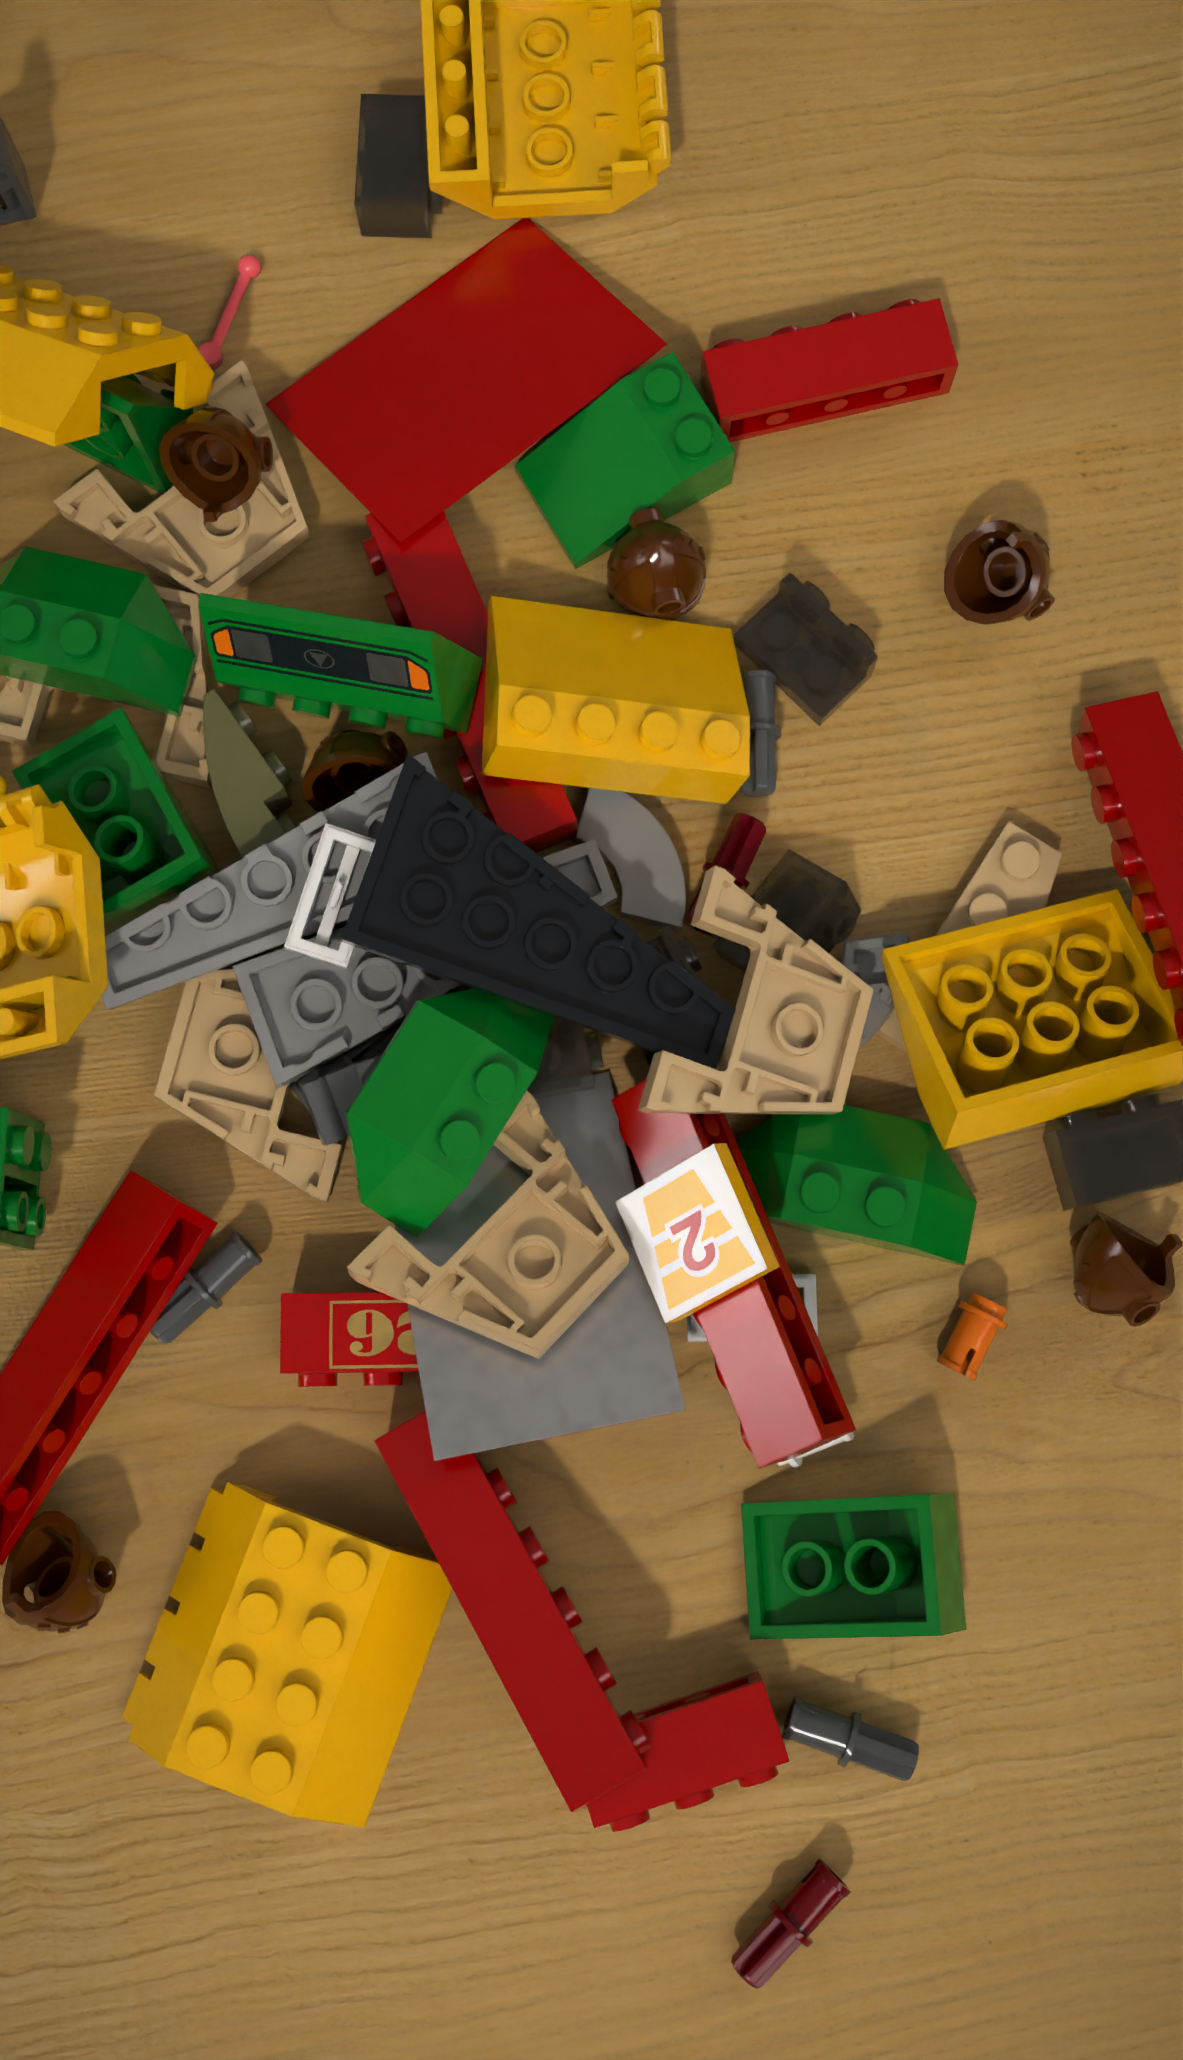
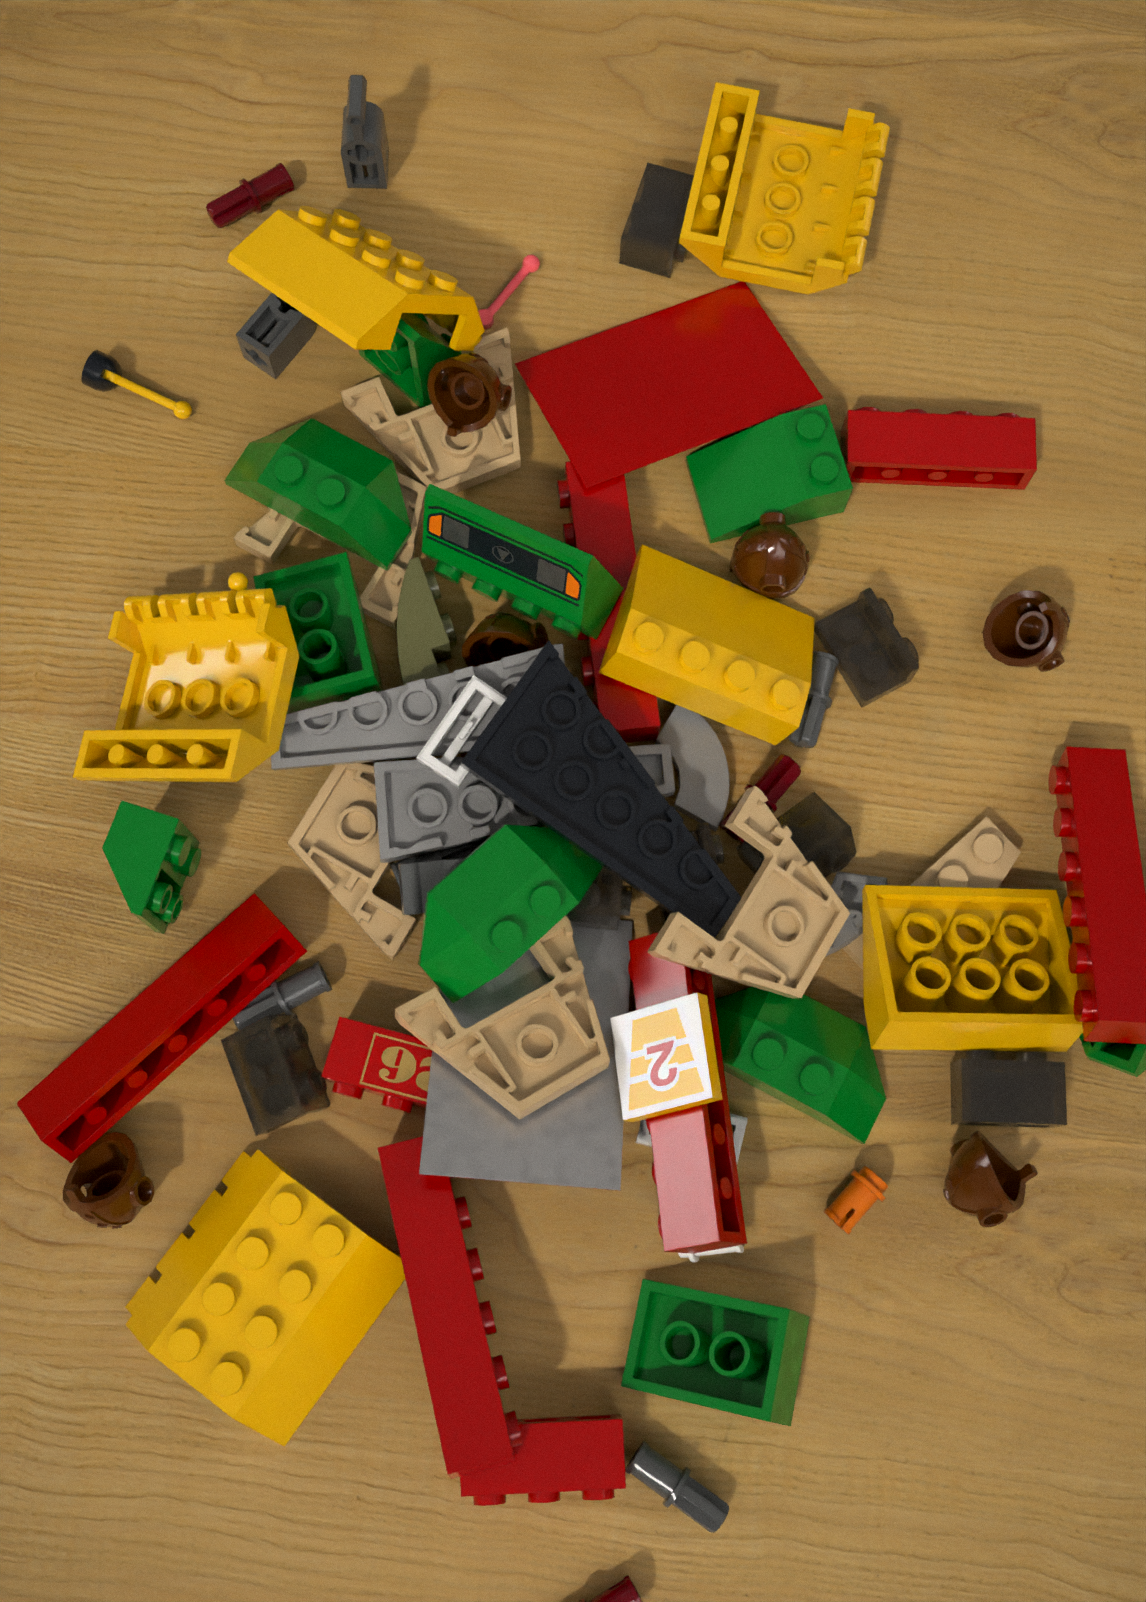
camera: 10 degrees right, 5 degrees down
(222, 1381) = (275, 1072): none -> clear smoke bracket

